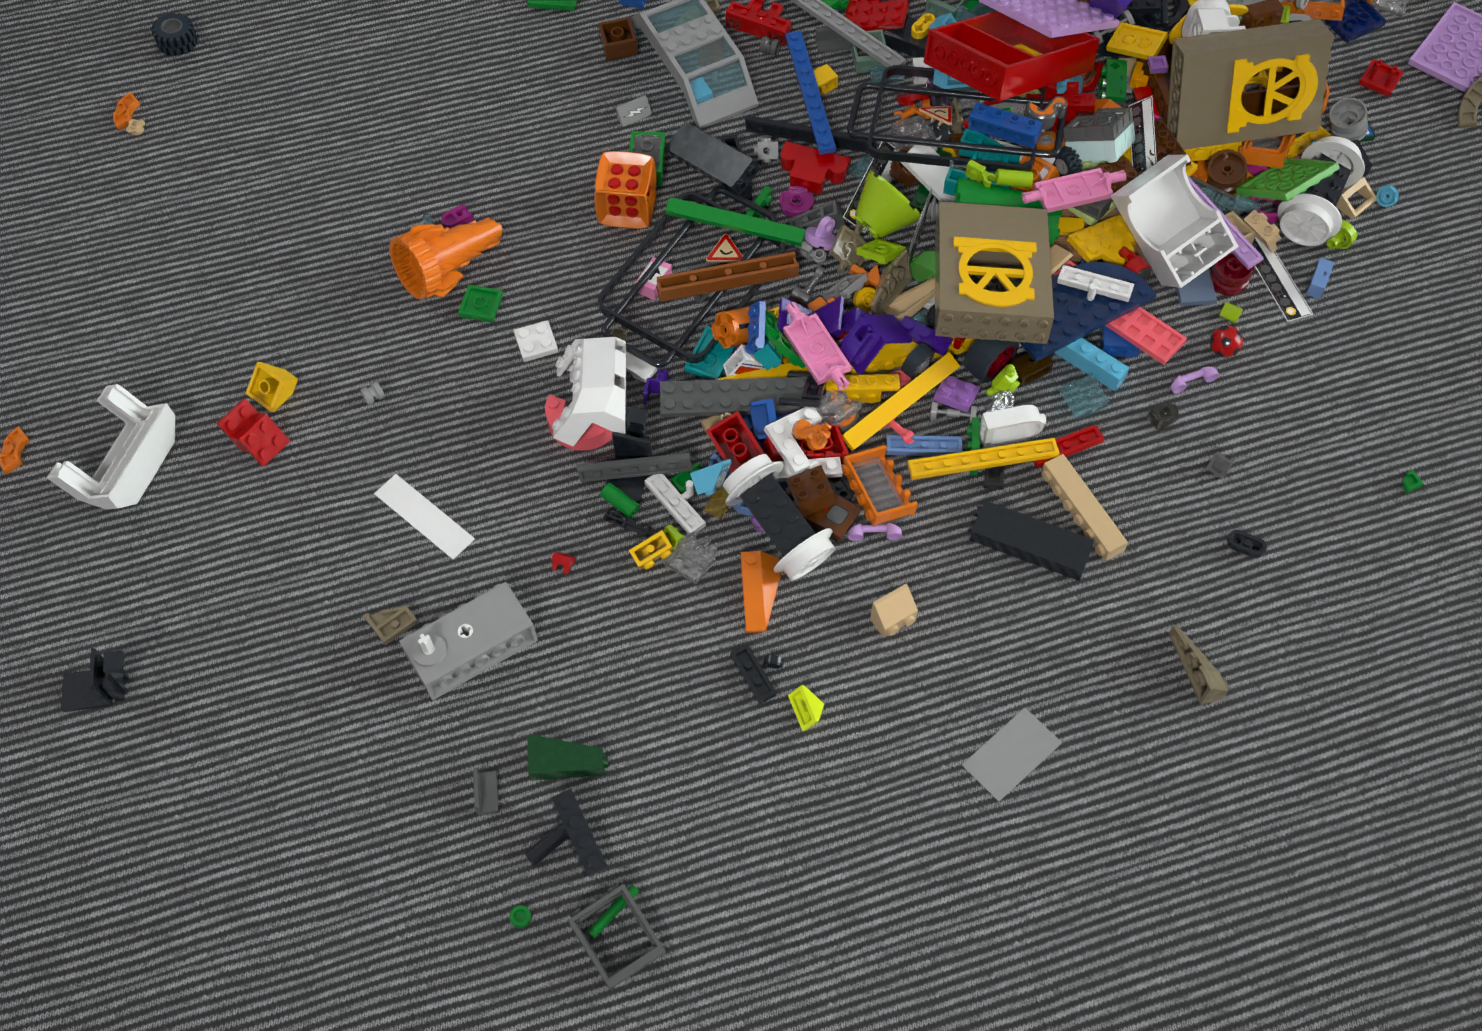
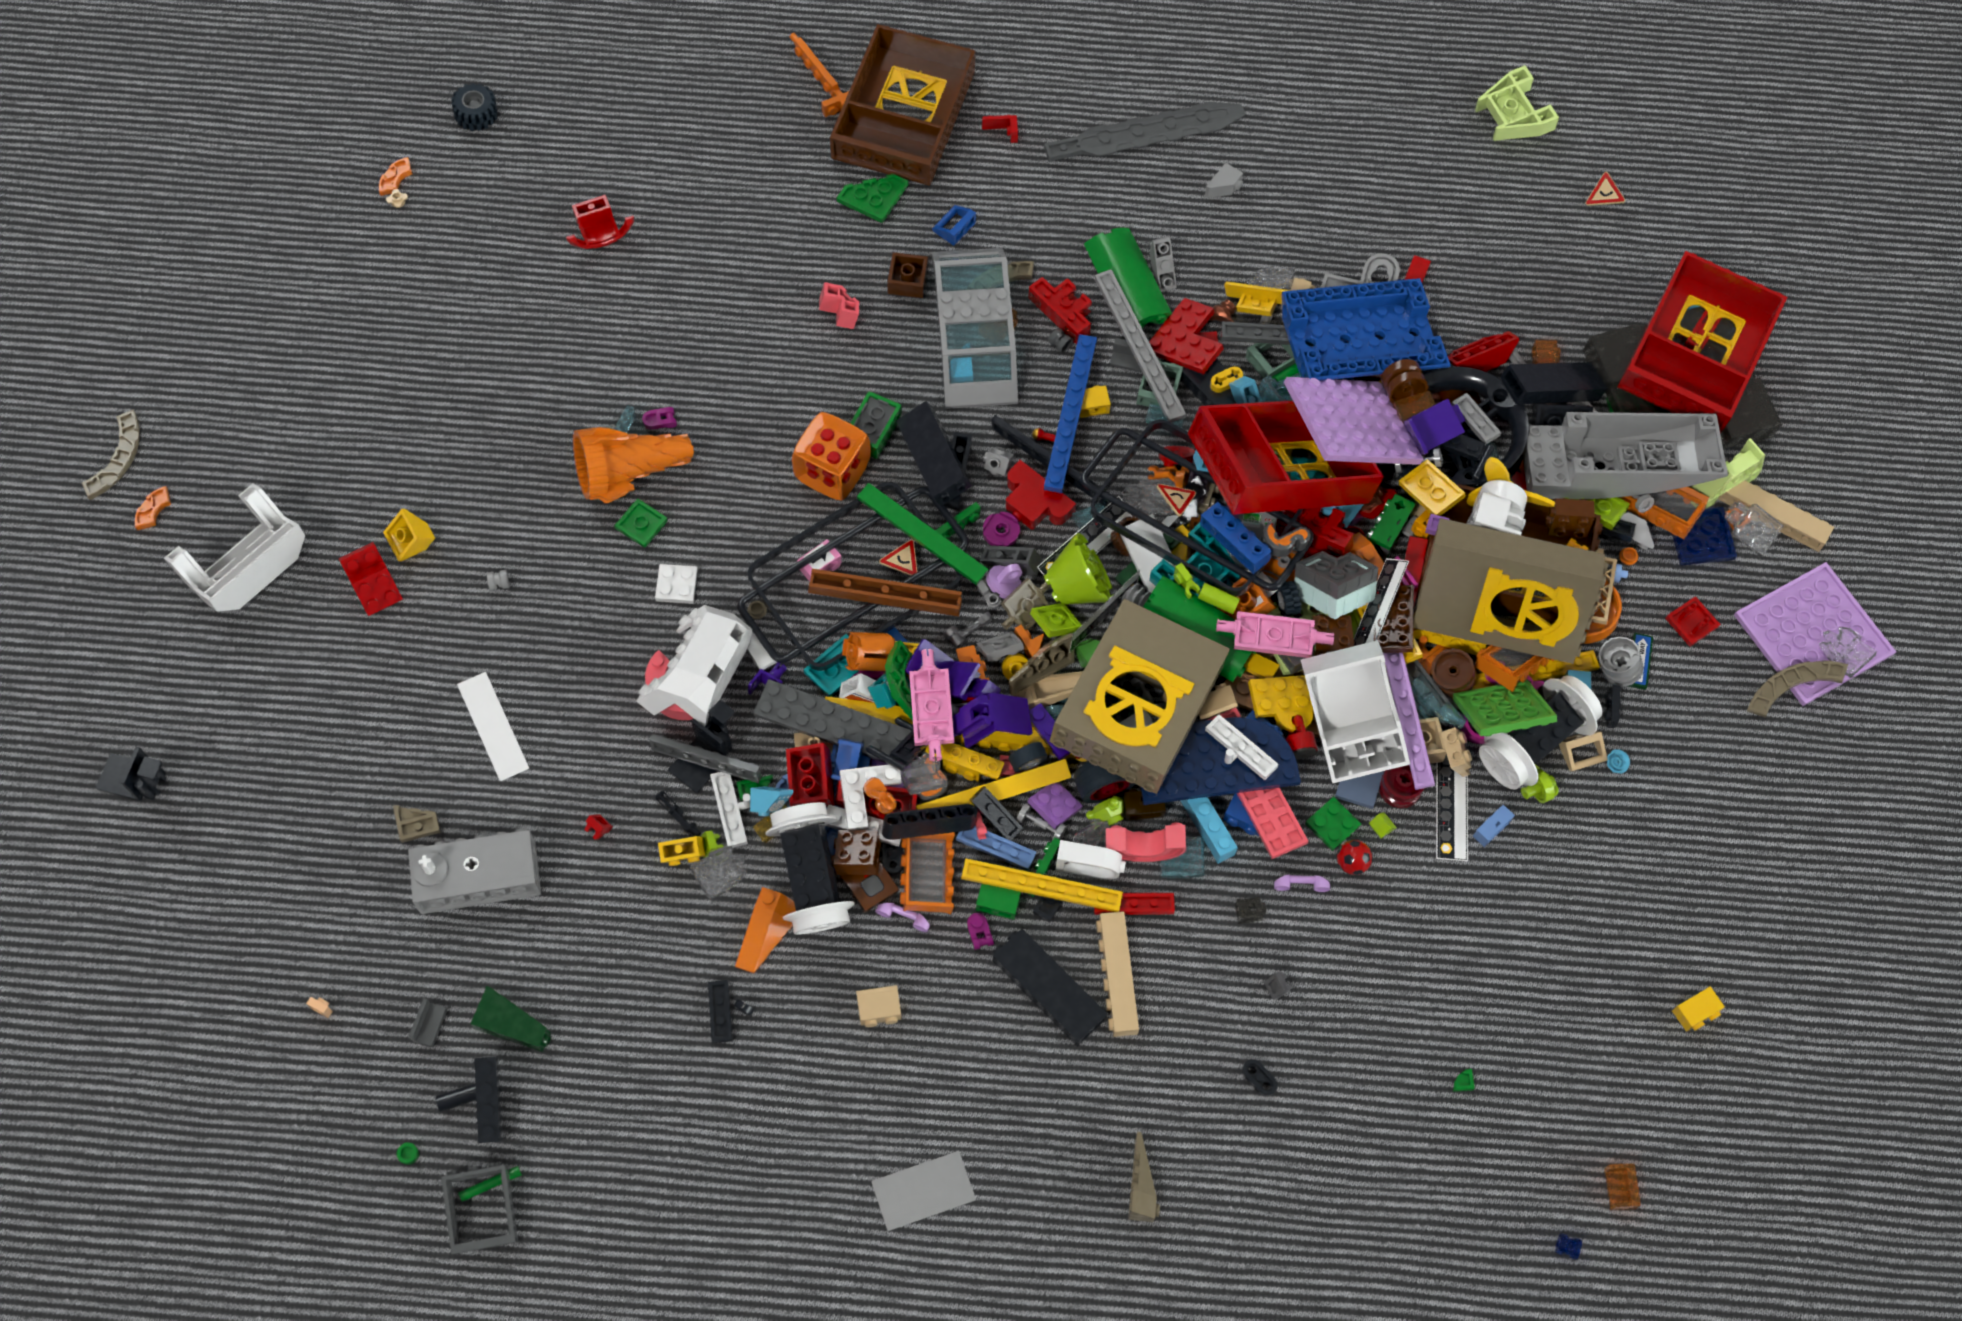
camera: 20 degrees right, 5 degrees up
(327, 87) = (597, 224): none -> red piece
(373, 818) = (320, 1006): none -> light nougat plate
(565, 77) = (836, 300): none -> coral brick
(620, 500) = (678, 785): green piece -> none
(633, 111) = (887, 364): light grey slope -> none
(756, 327) = (880, 662): blue plate -> none
(795, 120) = (1039, 434): none -> red piece
(806, 707) = (754, 1064): neon yellow slope -> none
(861, 442) = (929, 821): none -> black beam
(912, 416) = (996, 813): none -> black plate
(941, 515) = (977, 925): none -> magenta plate
(950, 488) = (998, 901): none -> green brick
(1059, 393) = (1147, 847): none -> coral brick
(1193, 324) = (1333, 823): none -> green plate

